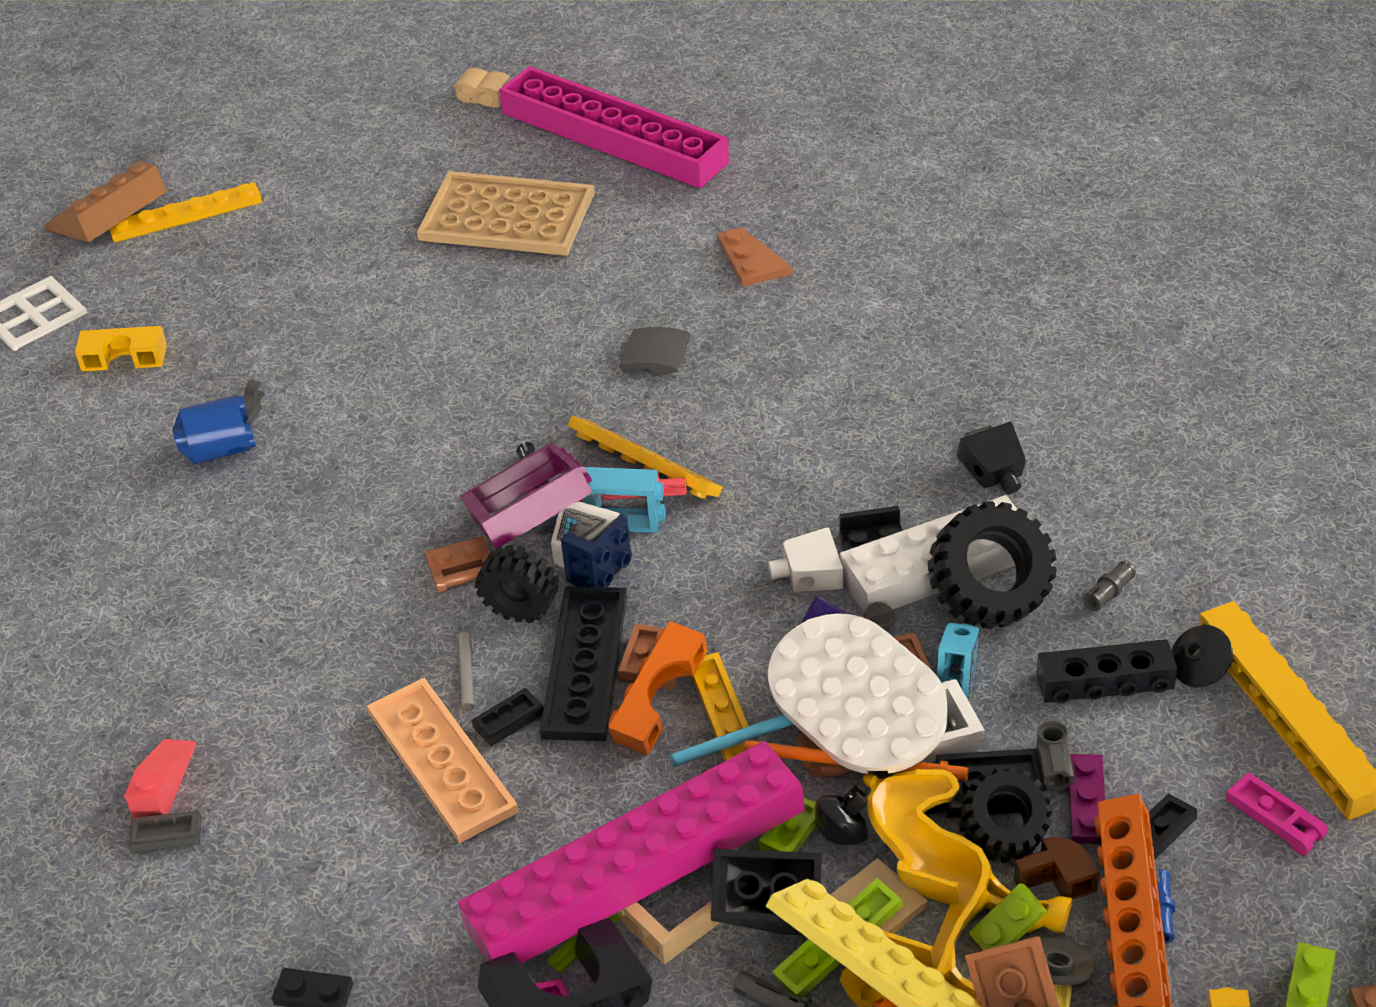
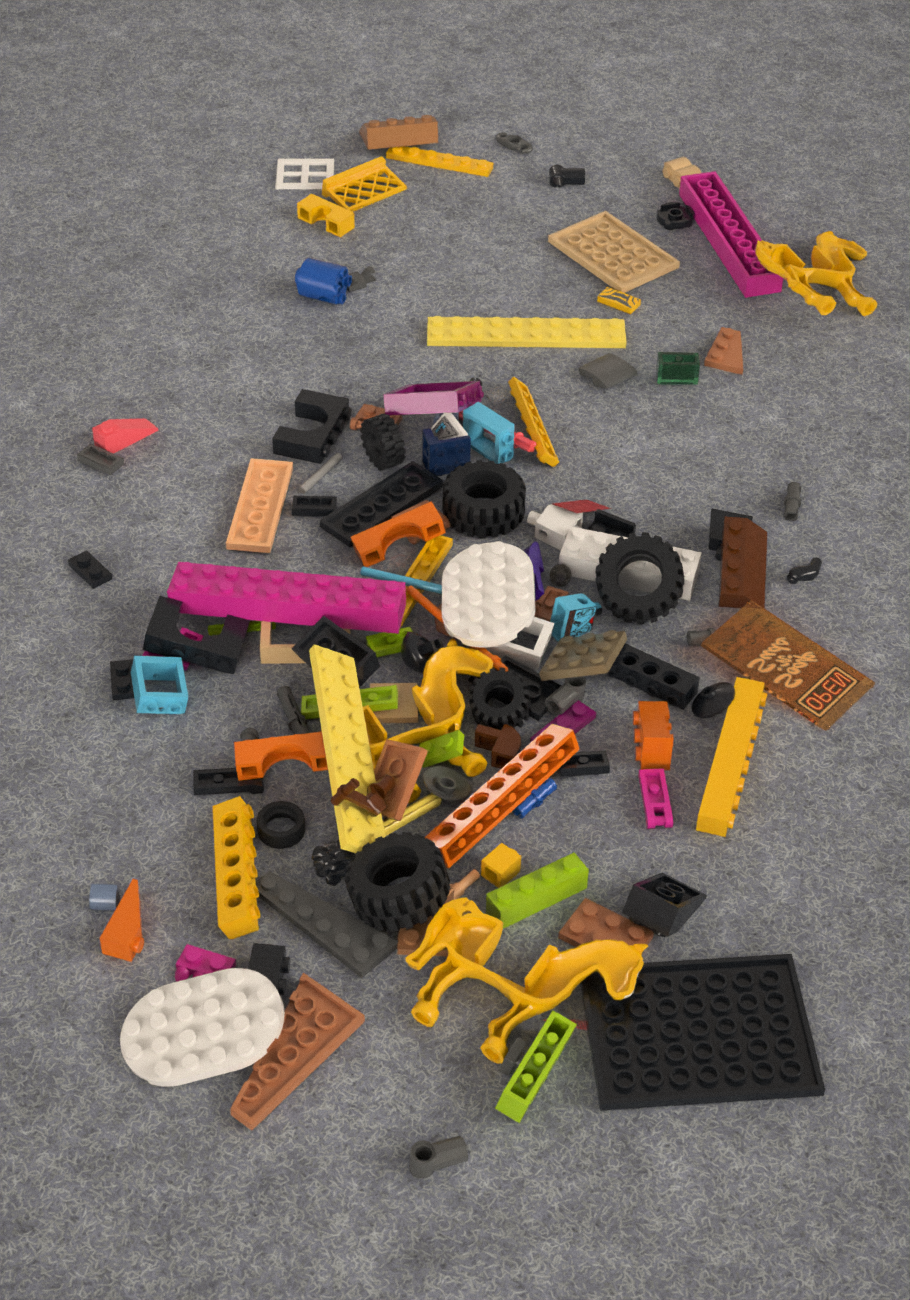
camera: 35 degrees right, 0 degrees up
(109, 283) = (356, 177): none -> yellow fence
(242, 151) = (518, 145): none -> dark grey piece
(353, 158) = (567, 176): none -> black piece
(413, 646) = (313, 444): none -> black arch
(509, 359) = (526, 332): none -> light yellow plate
(527, 139) = (675, 216): none -> black plate
(572, 264) = (619, 300): none -> yellow tile
(703, 552) = (484, 516): none -> black tyre
(732, 303) = (677, 368): none -> clear green brick
(758, 112) = (829, 268): none -> yellow animal
(813, 522) = (581, 506): none -> red sticker
(1009, 382) = (792, 501): none -> dark grey pin
(1029, 697) = (583, 655): none -> dark tan plate
(1054, 484) = (742, 563): none -> reddish brown slope
(1113, 450) = (805, 573): none -> black arm
(1195, 738) = (653, 735): none -> orange wedge
(1217, 565) = (788, 664): none -> clear orange piece

